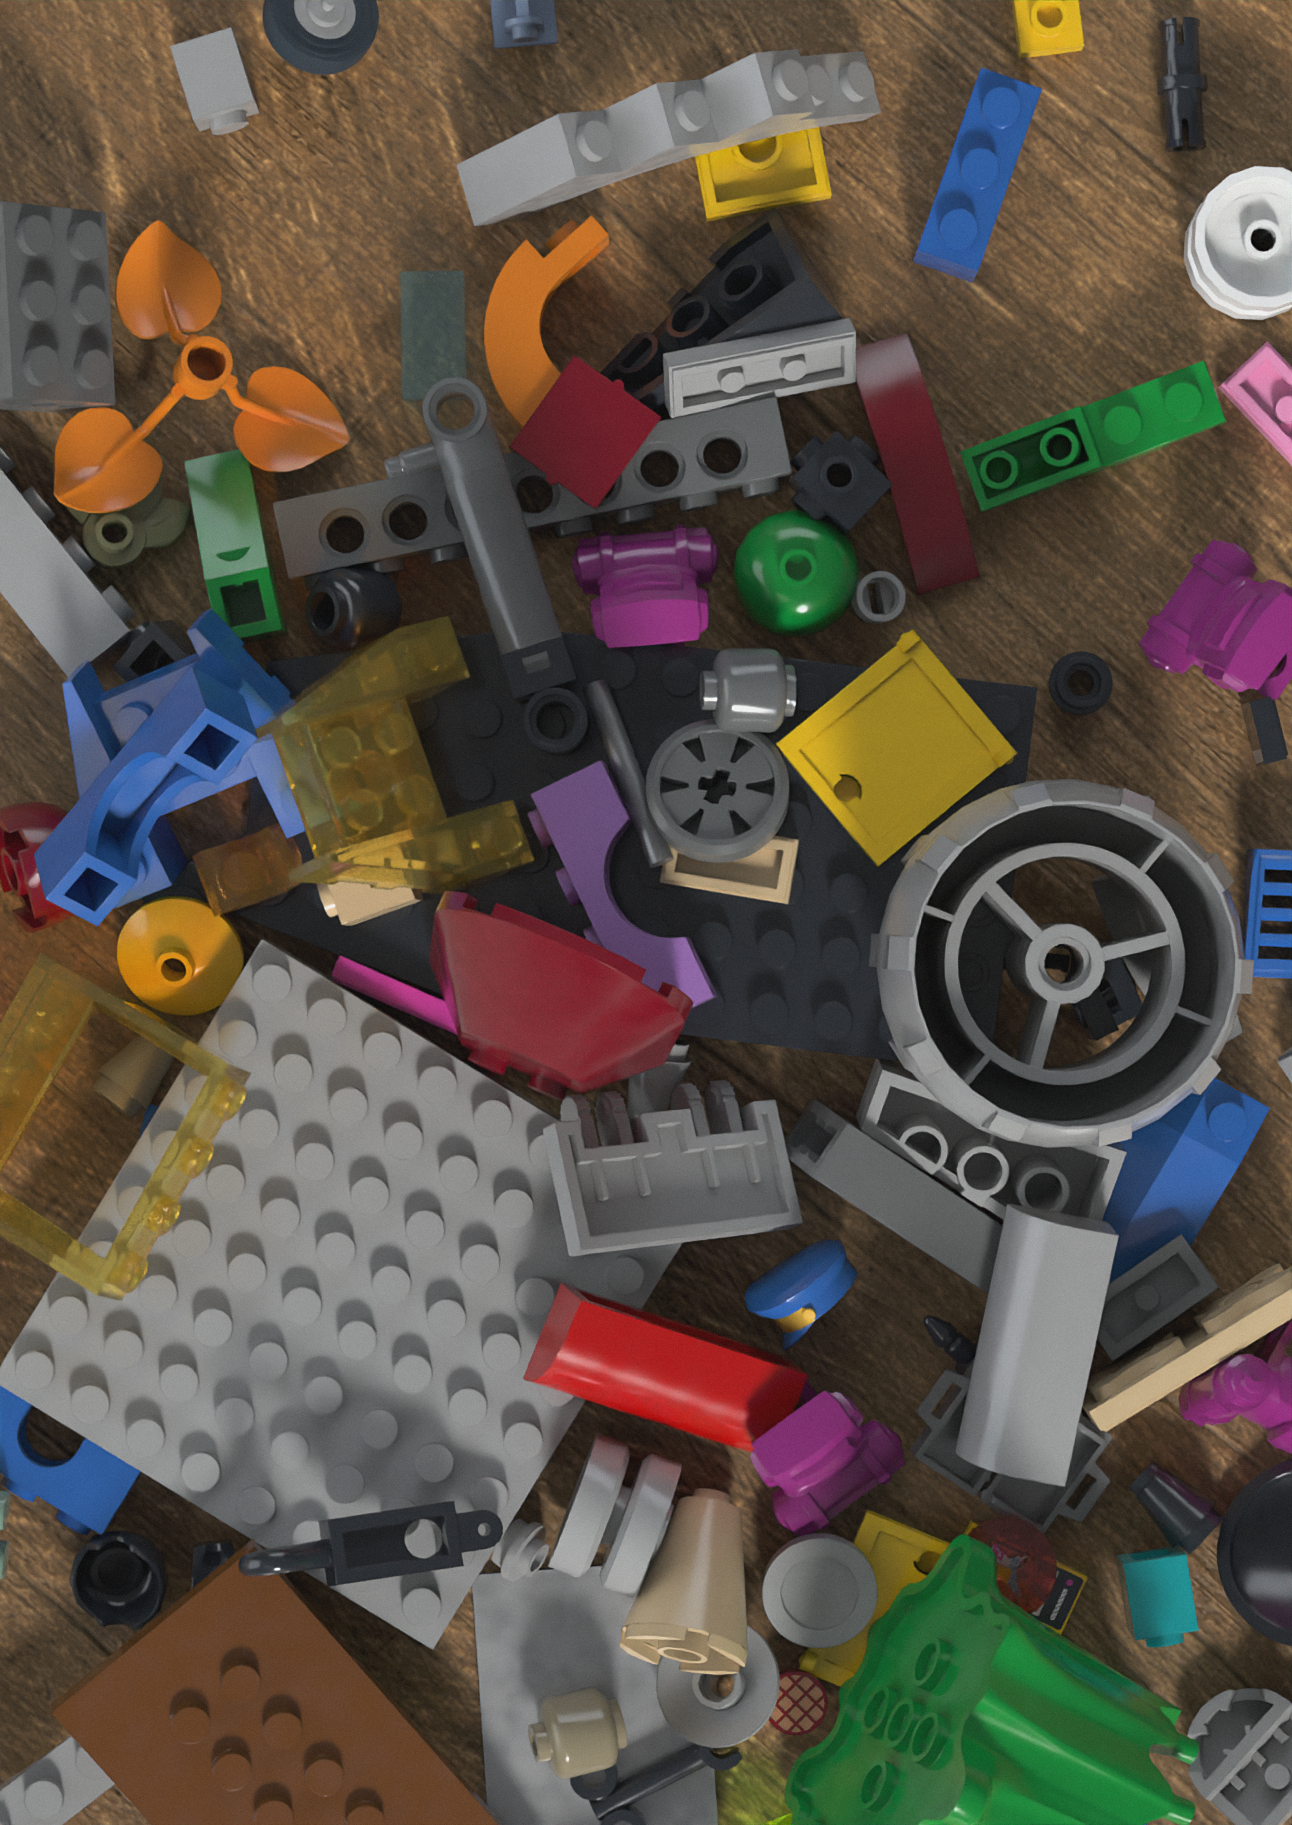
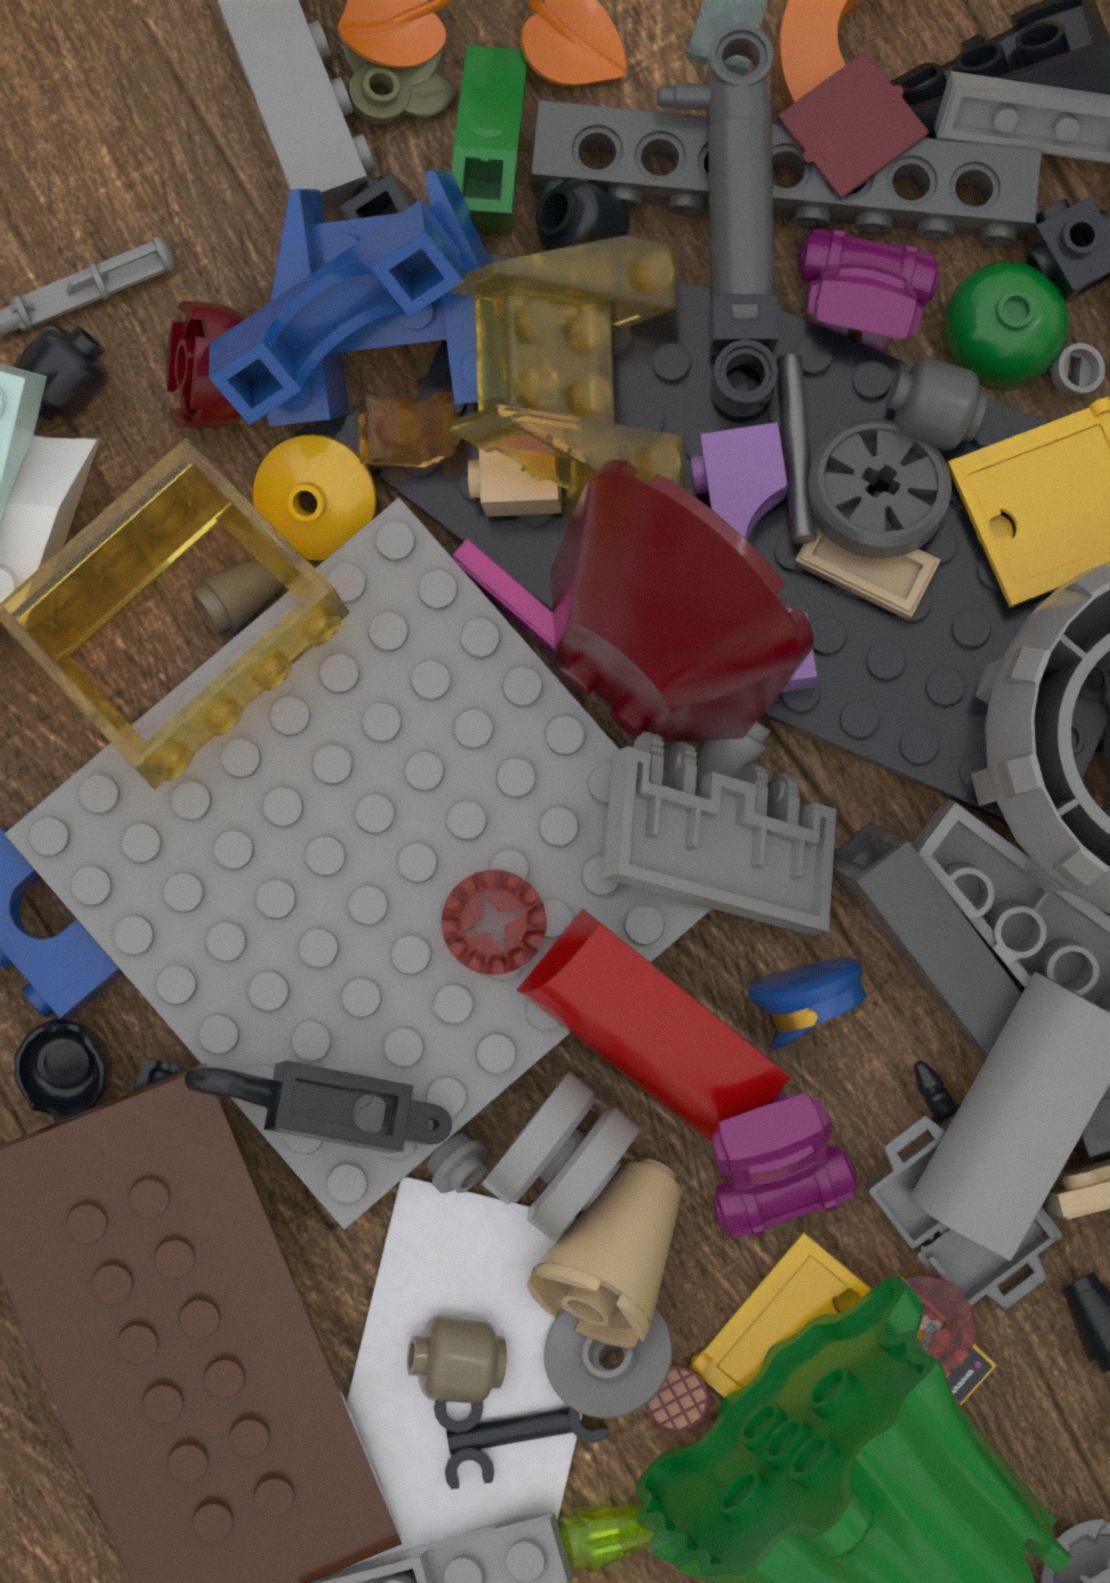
camera: 15 degrees right, 5 degrees down
(483, 1289) = (480, 951): none -> clear red gear
(819, 1590) = (734, 1294): light grey piece -> none
(1157, 1595) = (1060, 1404): teal brick -> none

